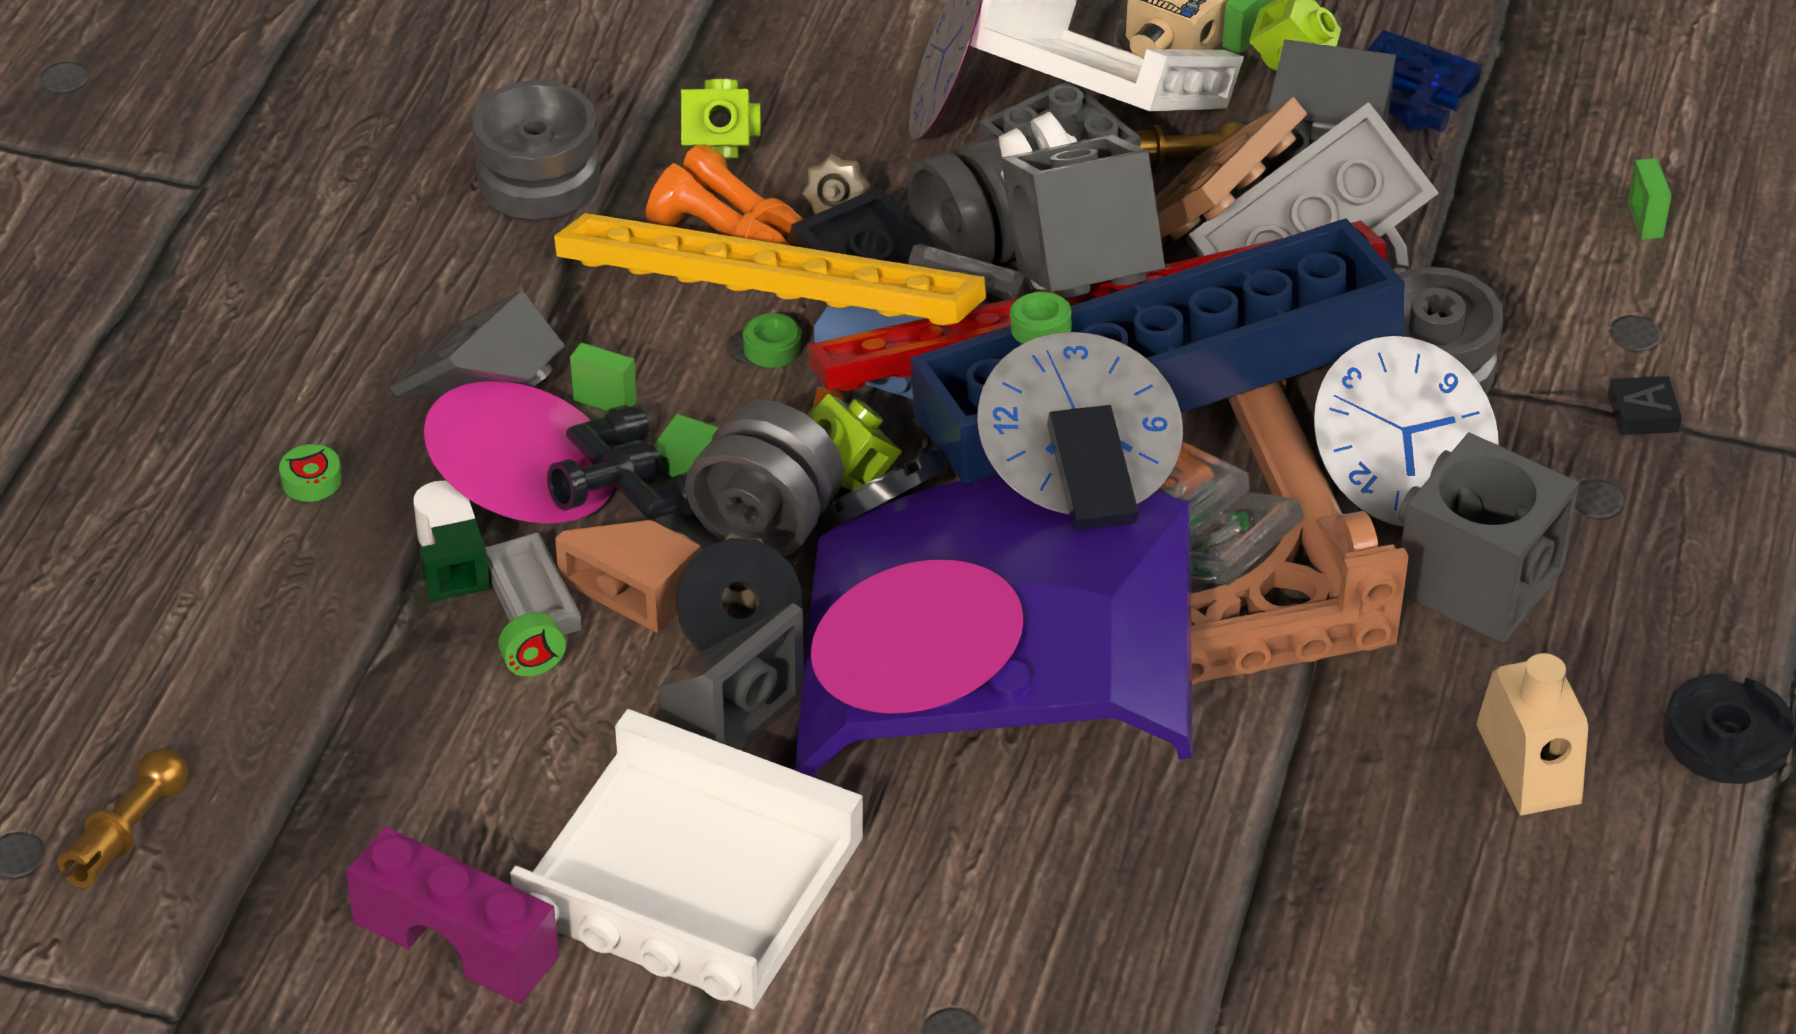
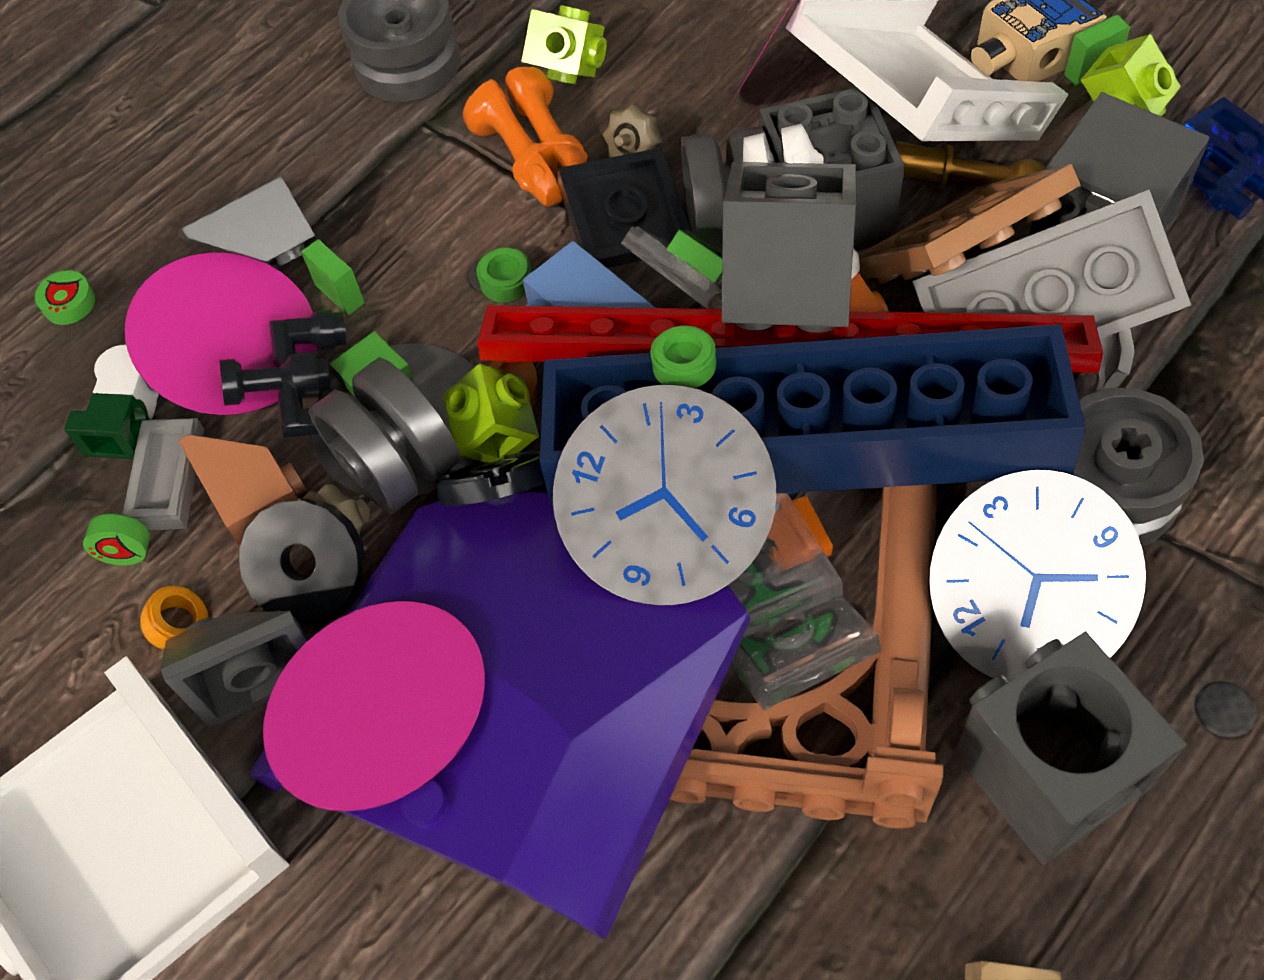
camera: 30 degrees right, 15 degrees up
(615, 694) = (151, 621): none -> light orange piece
(772, 267) = (524, 218): yellow plate -> none
(986, 252) = (698, 254): none -> bright green tile
(1092, 467) = (646, 554): black tile -> none

